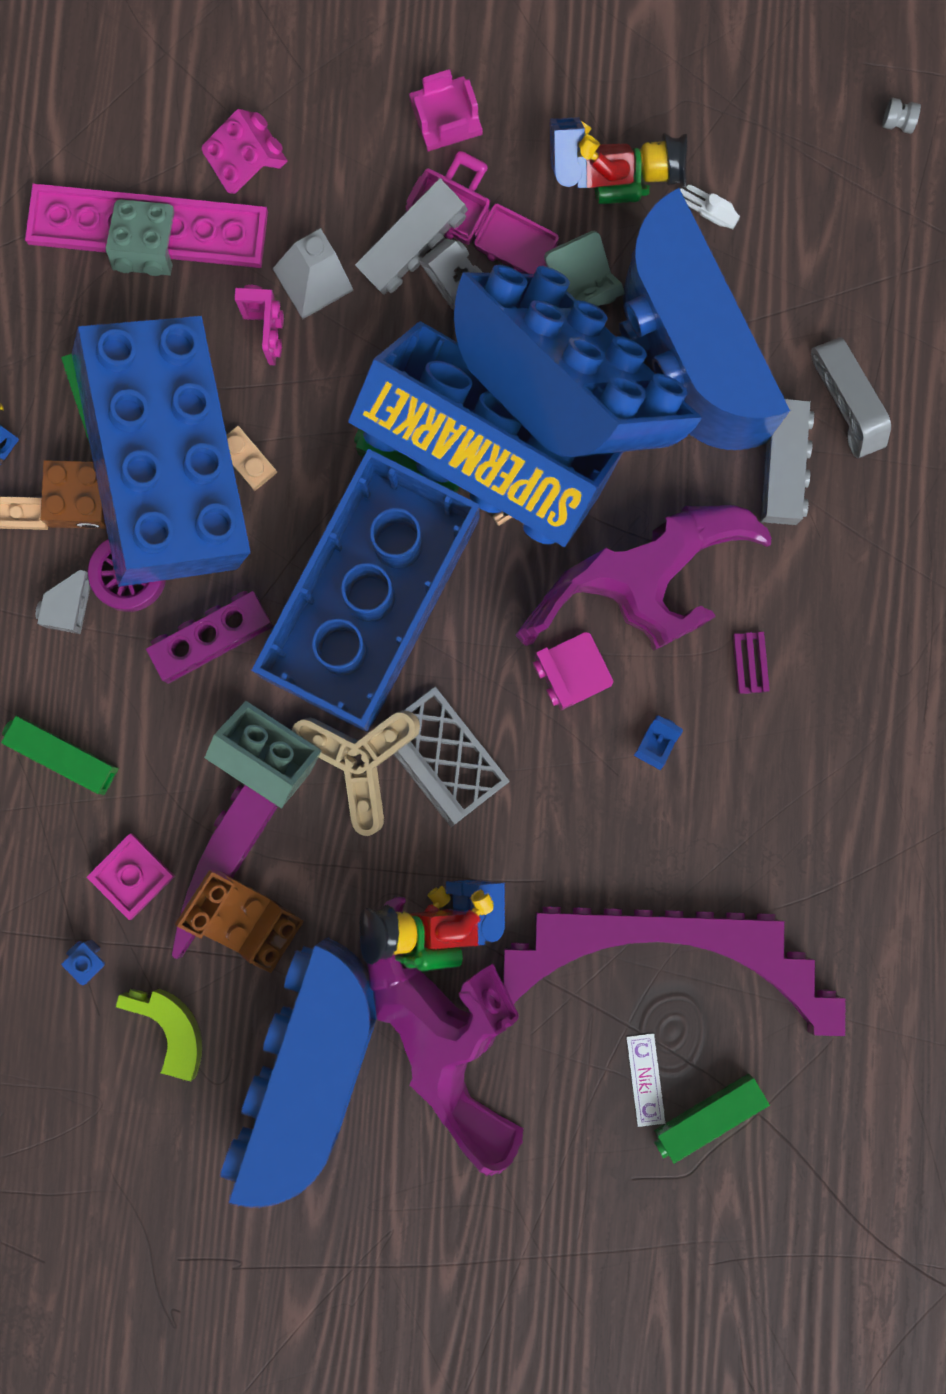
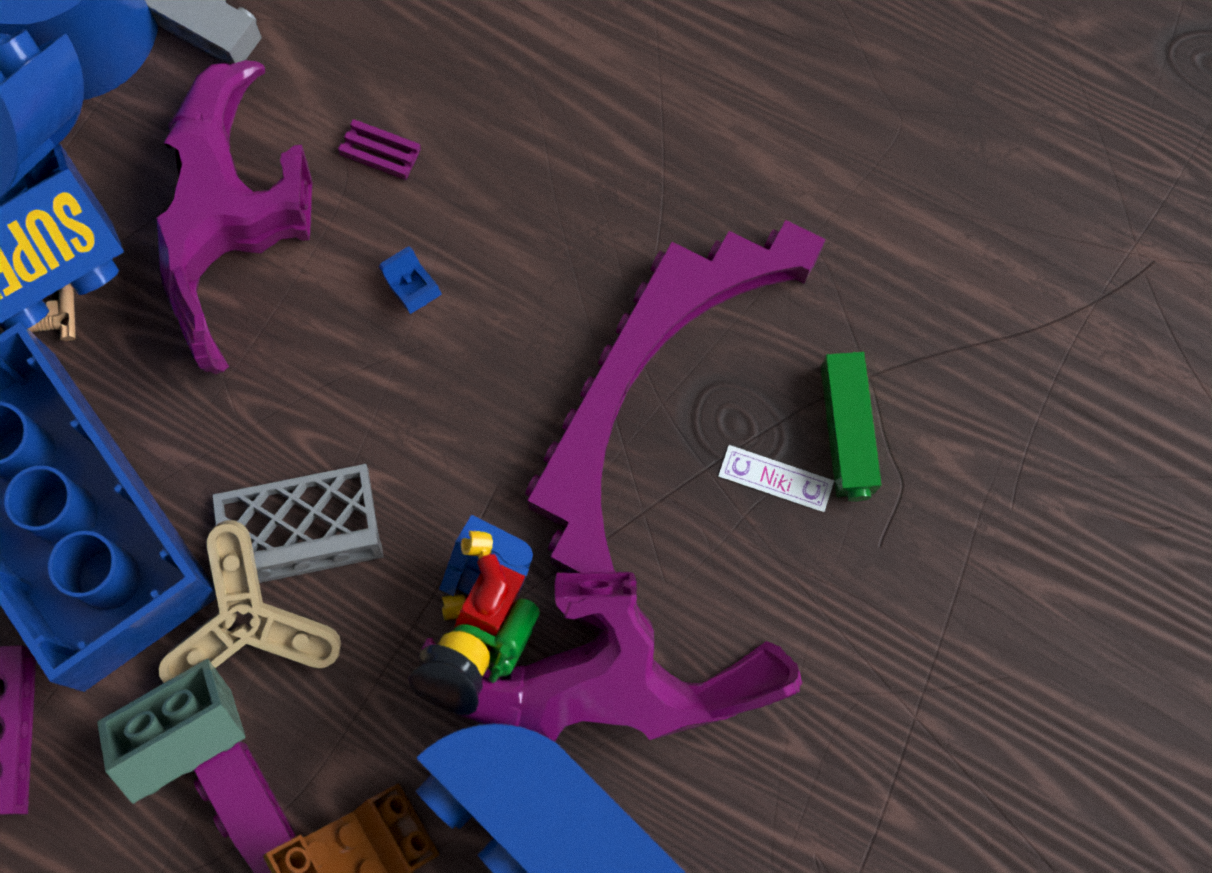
camera: 65 degrees left, 10 degrees down
(573, 671) = (281, 335): dark pink bracket -> none

